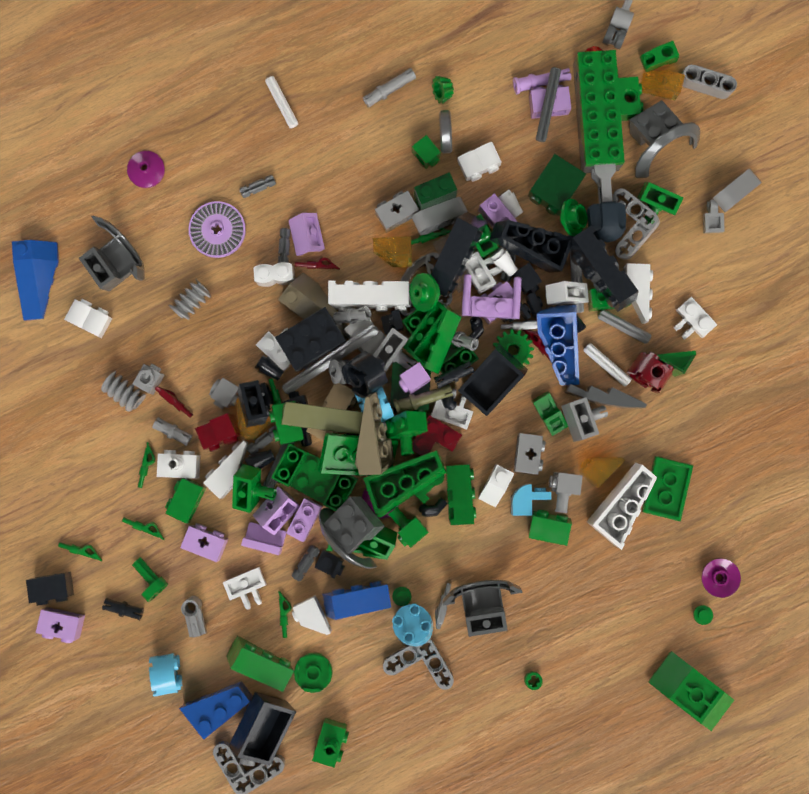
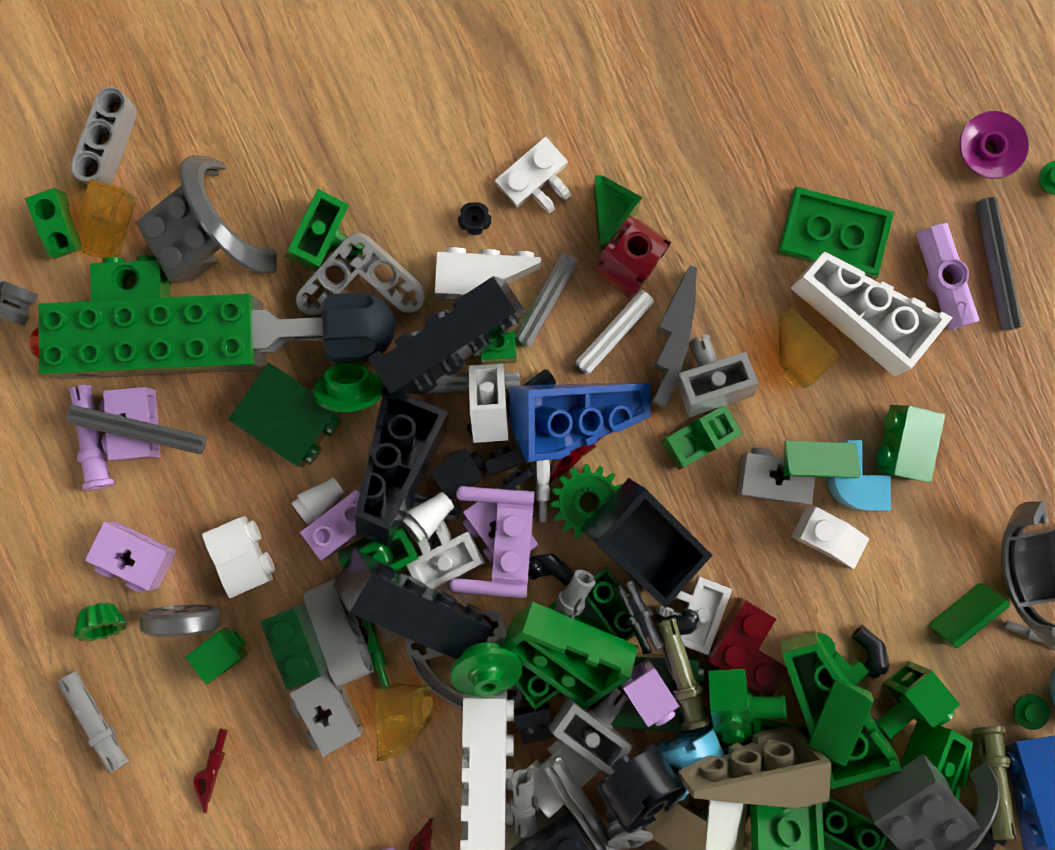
camera: 90 degrees left, 0 degrees up
(367, 152) = (210, 773): none -> dark red hand
(375, 574) = (993, 752): none -> olive pin
(402, 480) = (841, 721): none -> green slope
(454, 561) = (968, 615): none -> green slope
(460, 494) = (854, 604): green wedge -> none
(485, 96) = (150, 556): none -> lavender brick
(540, 475) = (821, 459): none -> slope
(564, 486) = (837, 413): light grey brick -> none
(652, 581) = (999, 264): none -> dark grey axle
(655, 548) = (942, 255): none -> lavender piece
(669, 281) = (474, 209): none -> black plate
(713, 221) = (359, 137): light grey plate -> none
(737, 190) = (305, 93): light grey beam -> none

